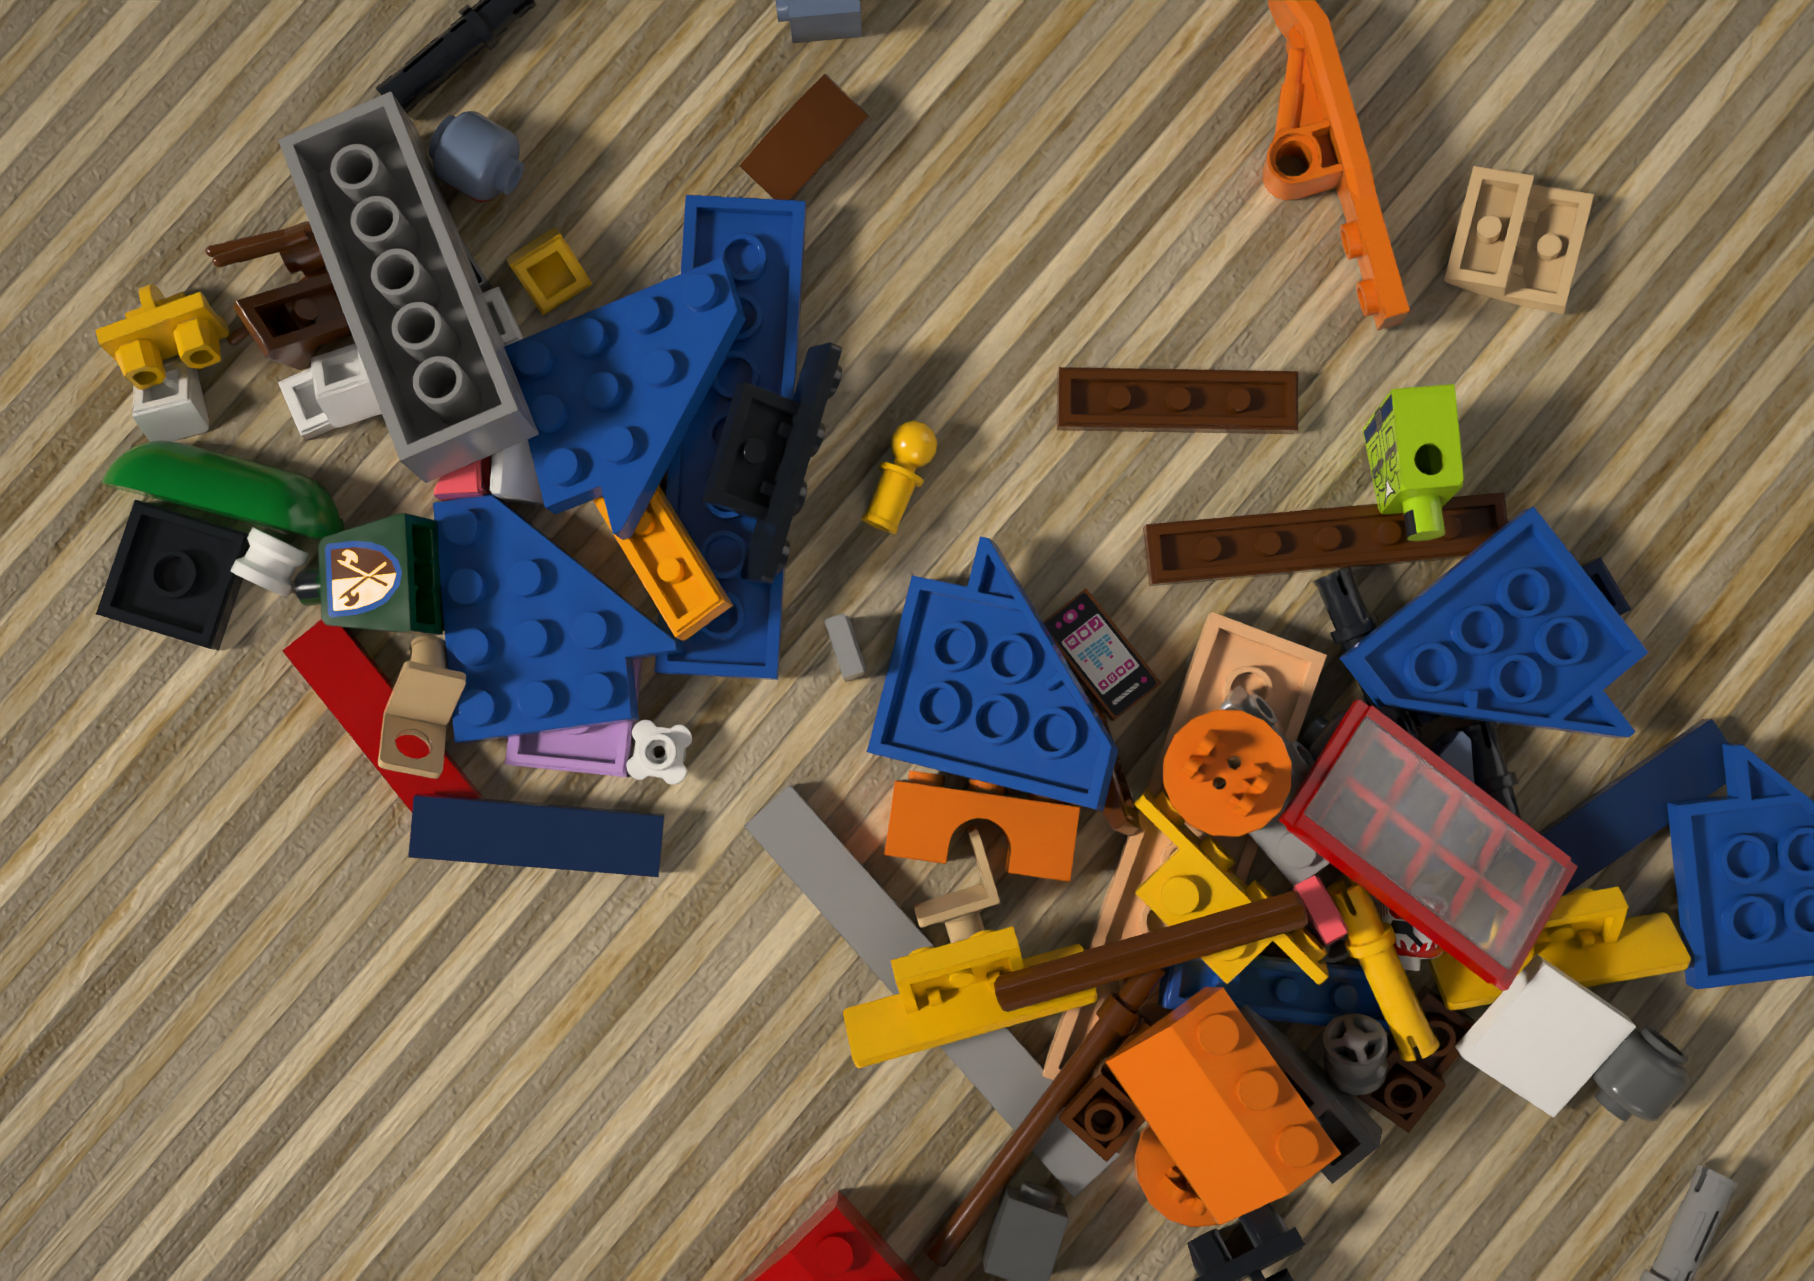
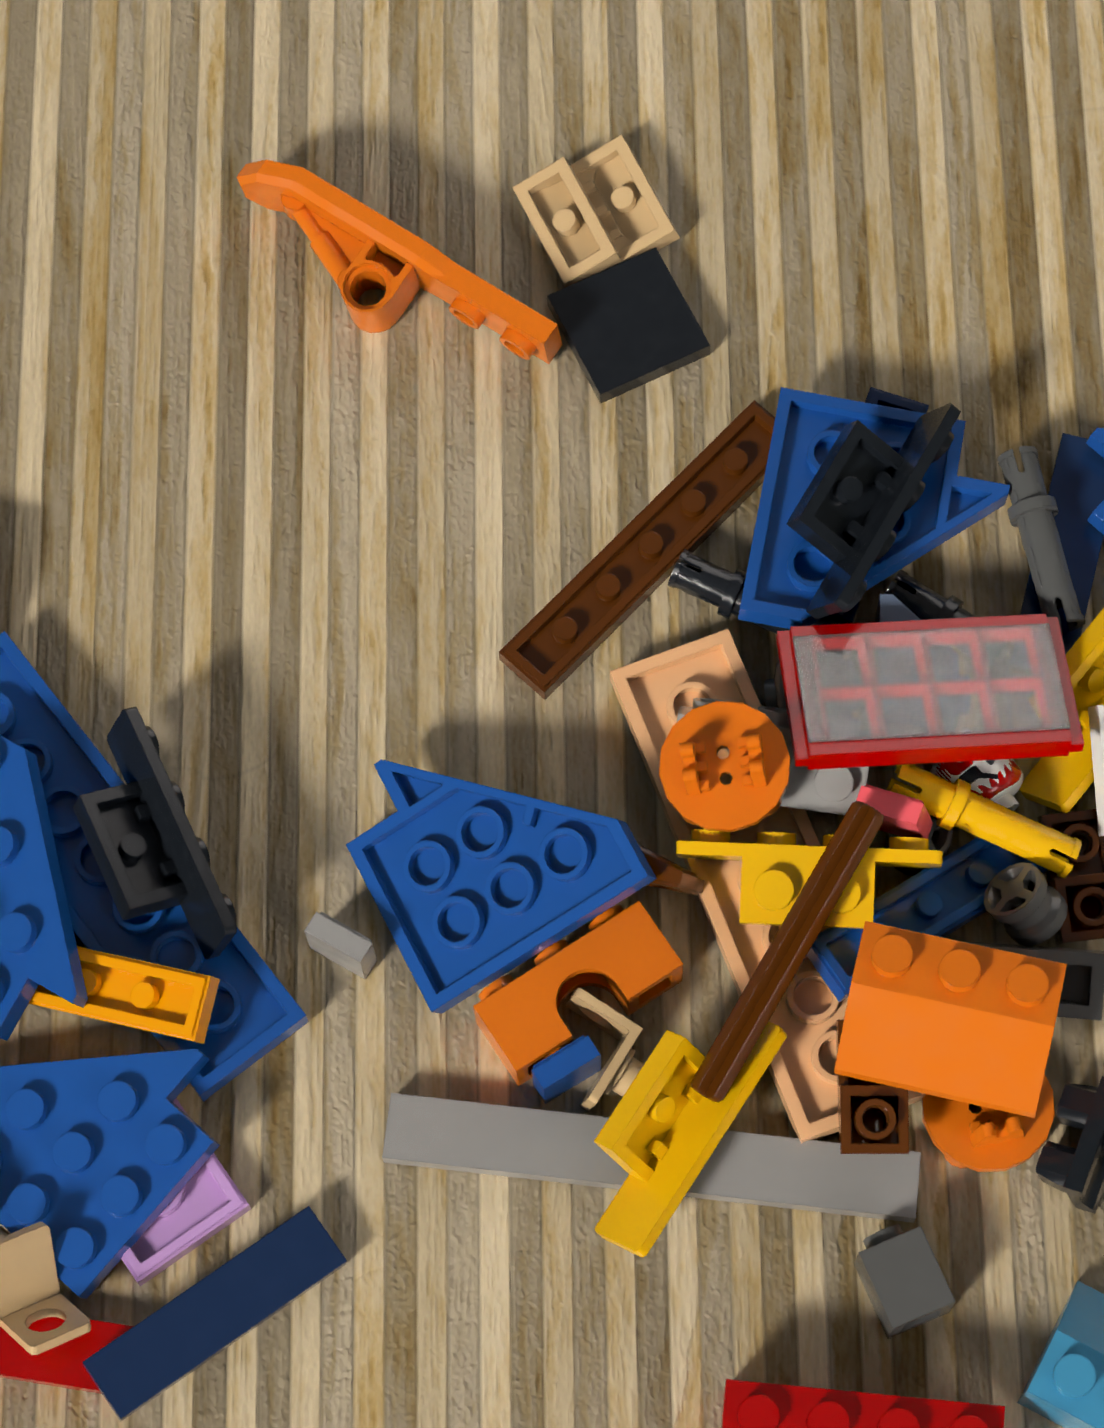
camera: 35 degrees left, 15 degrees down
(671, 765) = (258, 1179): white plate -> none
(913, 447) = (258, 747): yellow pin -> none
(924, 876) = (566, 1068): none -> blue tile
(1100, 655) = (554, 775): tile -> none
(1116, 1018) = (814, 1033): reddish brown bar -> none
(1177, 400) = (438, 542): reddish brown tile -> none
(1416, 456) = (657, 423): lime torso -> none
(1466, 342) = (628, 325): none -> black tile
(1514, 656) = (860, 499): none -> black bracket
(1621, 788) = (1034, 516): none -> dark grey pin

